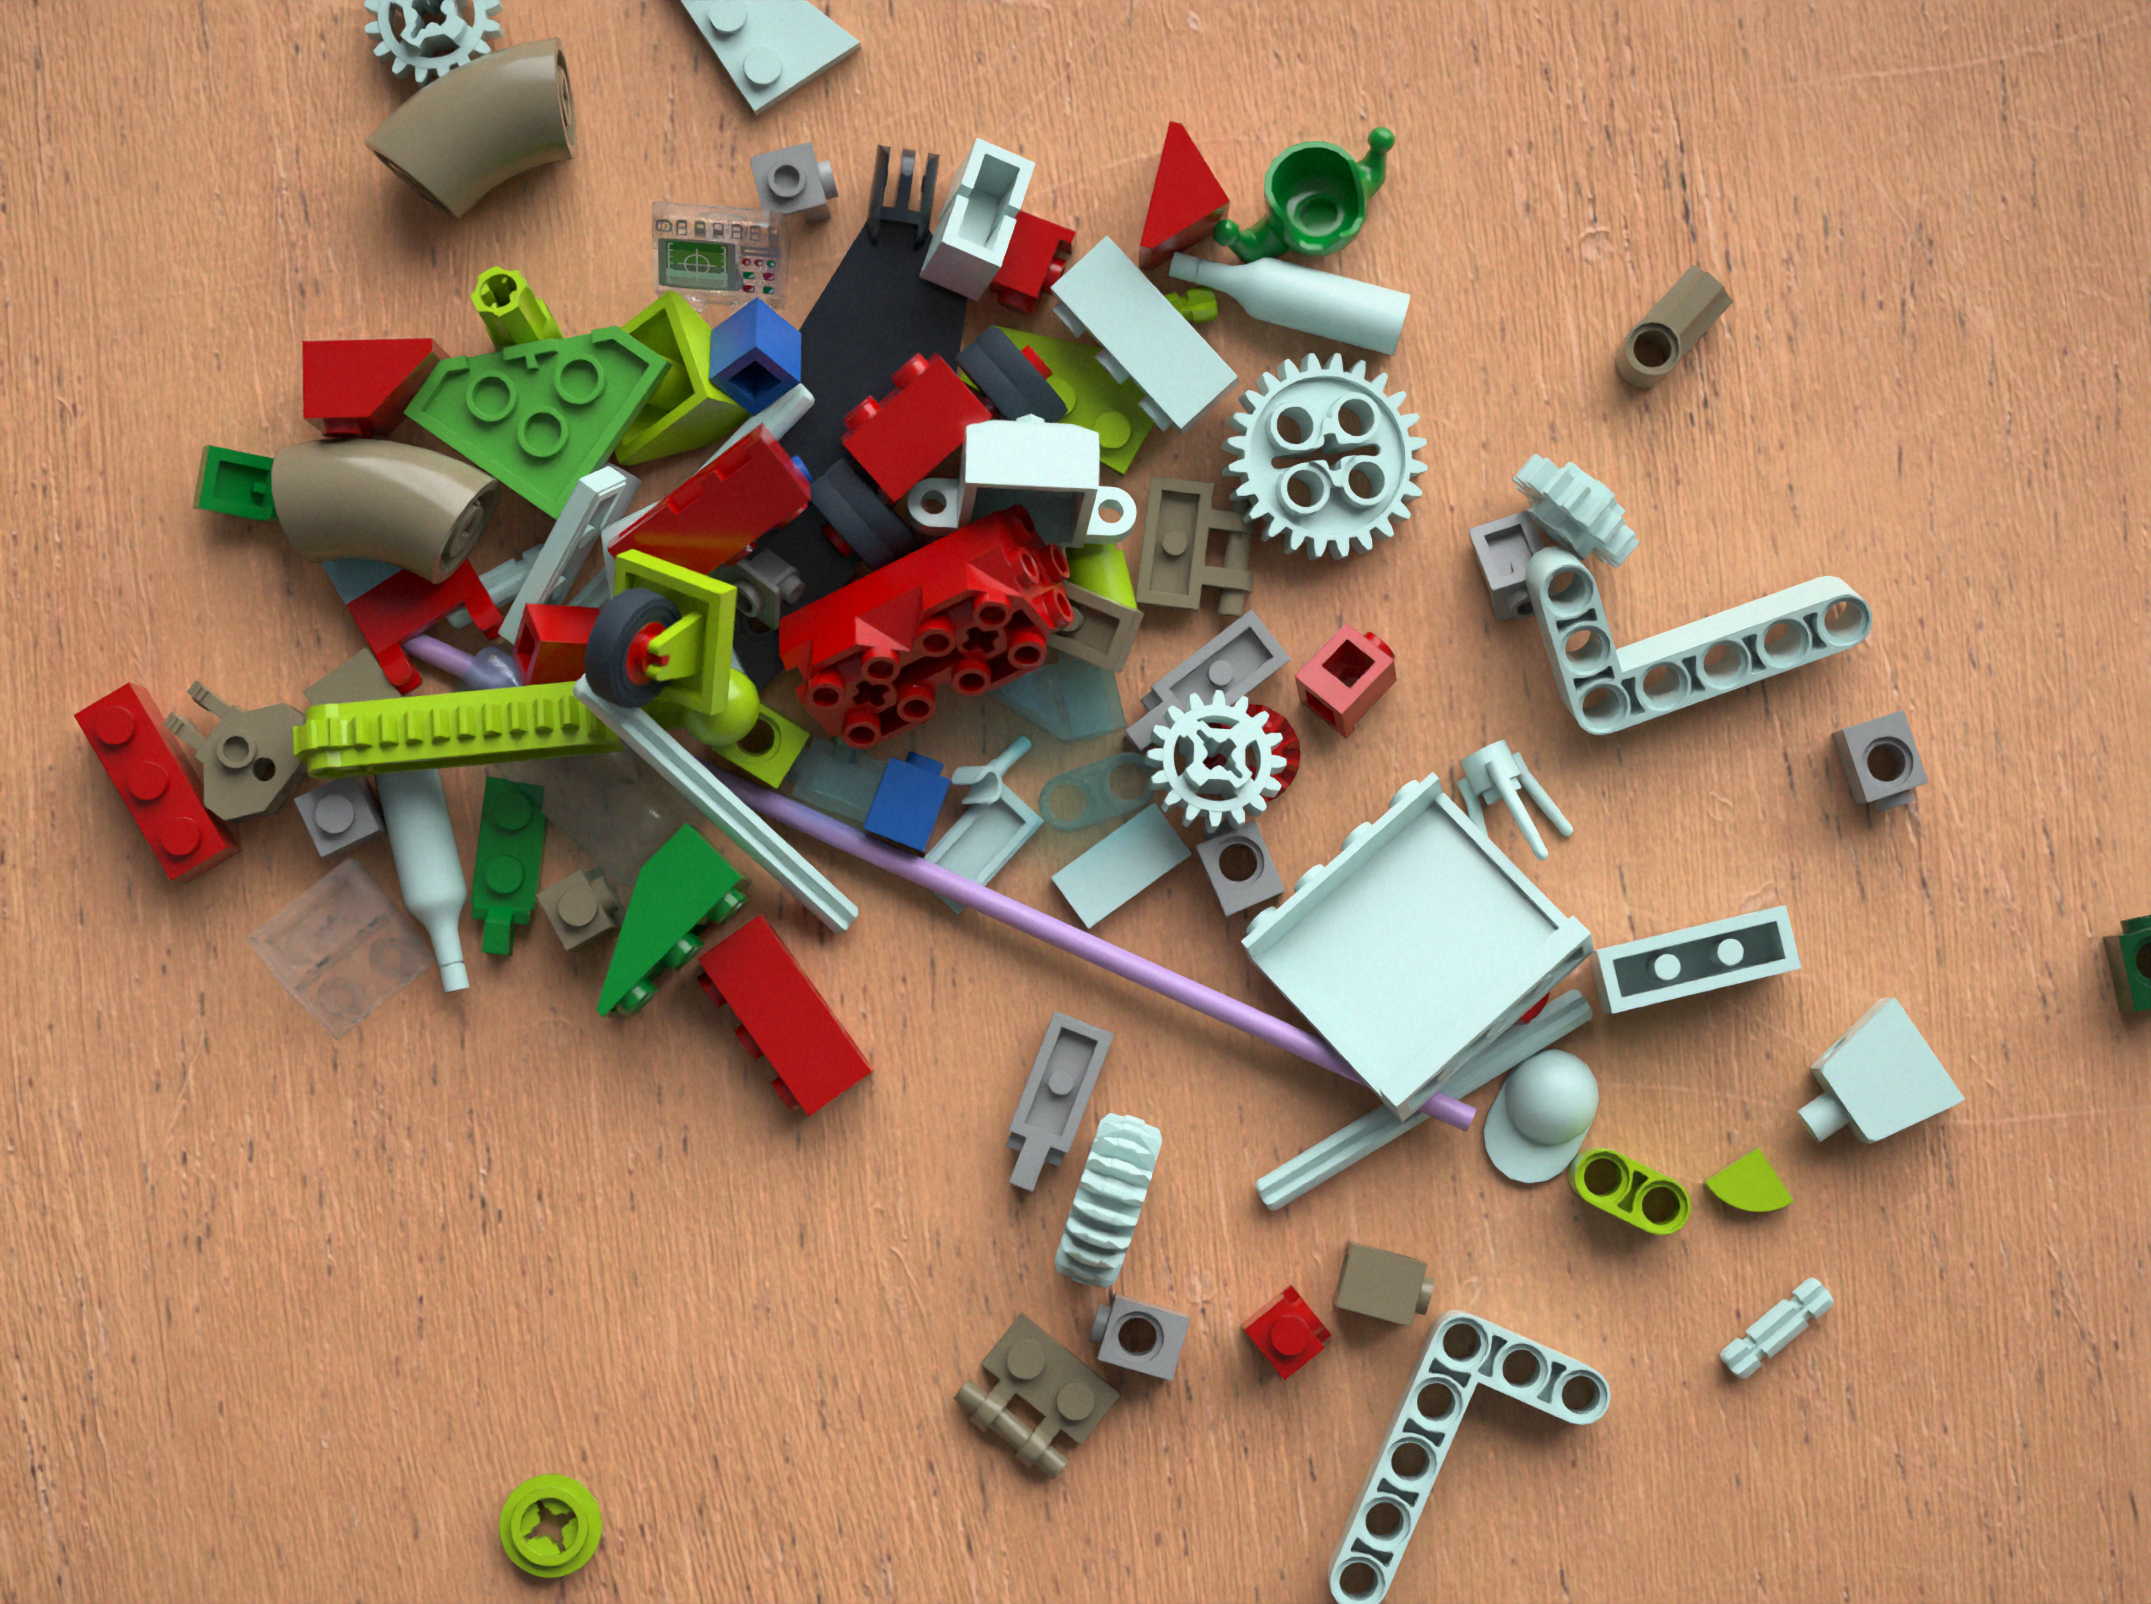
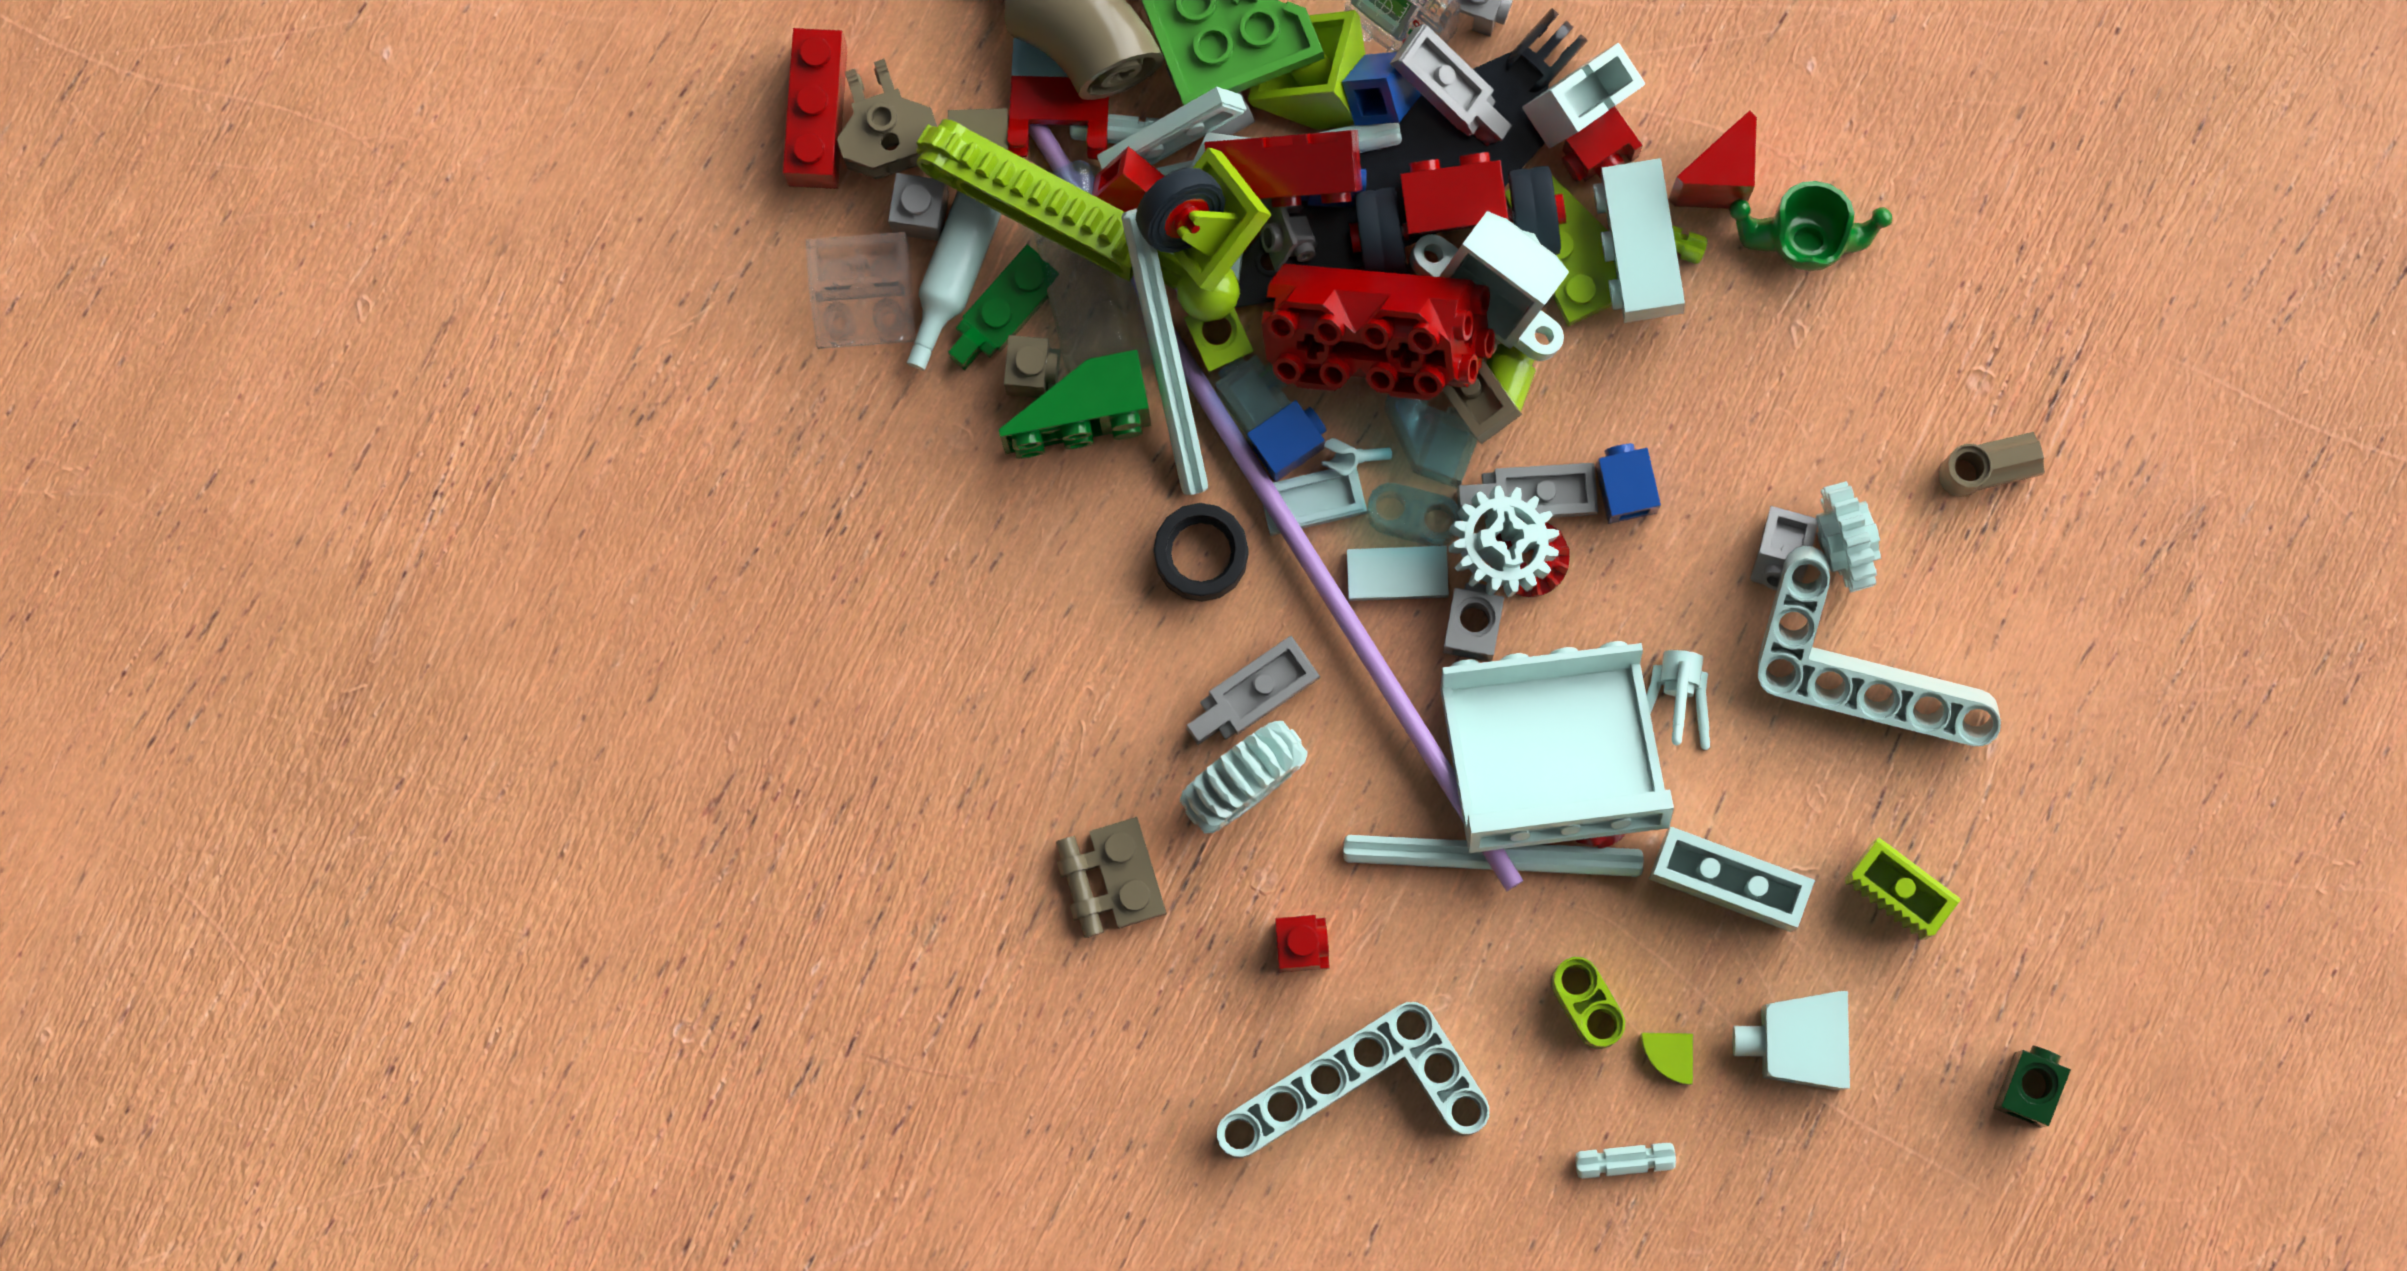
camera: 35 degrees right, 5 degrees down
(542, 1554) = (727, 730): lime gear -> none
(783, 1017) = (1112, 522): red brick -> none
(827, 305) = (1450, 85): none -> light grey hinge
(850, 985) = (1193, 515): none -> black tyre
(1161, 1357) = (1210, 904): light grey brick -> none
(1176, 548) = (1573, 390): dark tan plate -> none
(1300, 606) = (1627, 483): none -> blue brick
(1305, 299) = (1763, 288): light aqua piece -> none
(1334, 510) = (1723, 357): light aqua gear -> none
(1342, 657) = (1636, 537): red brick -> none
(1383, 1284) = (1385, 955): dark tan brick -> none
(1541, 1116) = (1563, 918): light aqua cap -> none
(1879, 850) = (1902, 889): none -> lime brick
(1889, 733) = (1958, 818): light grey brick -> none

